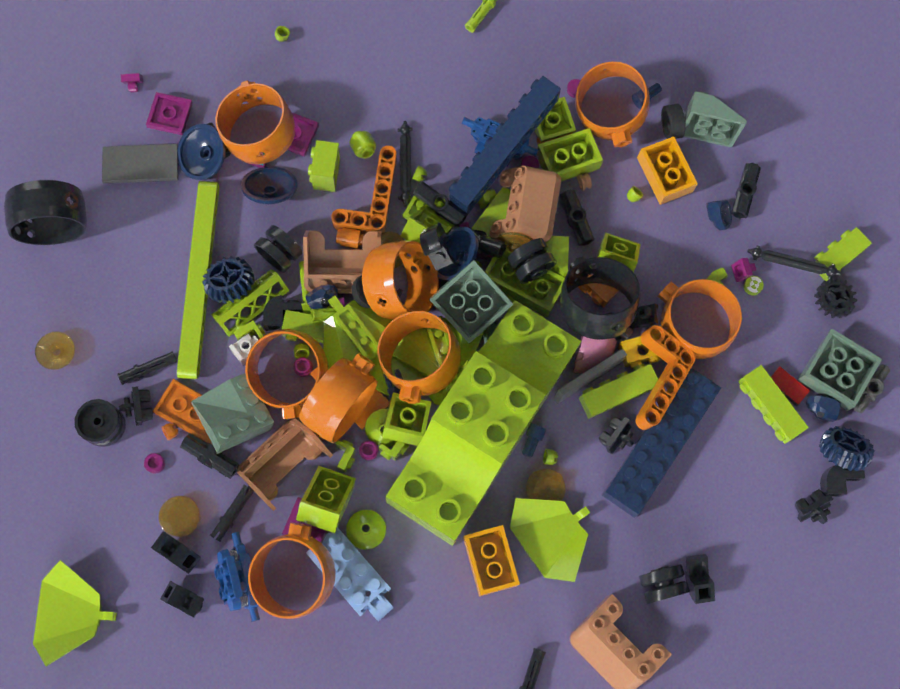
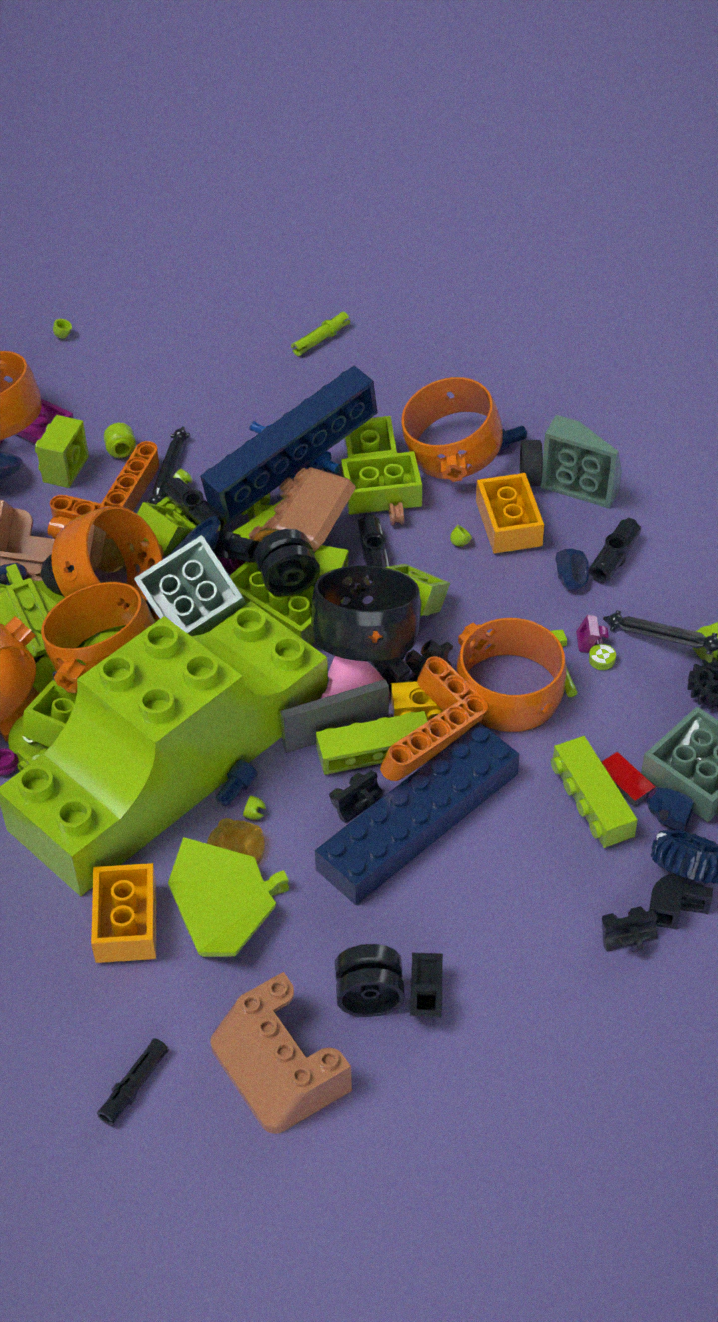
camera: 20 degrees right, 25 degrees down
(433, 244) = (164, 528): black brick -> none

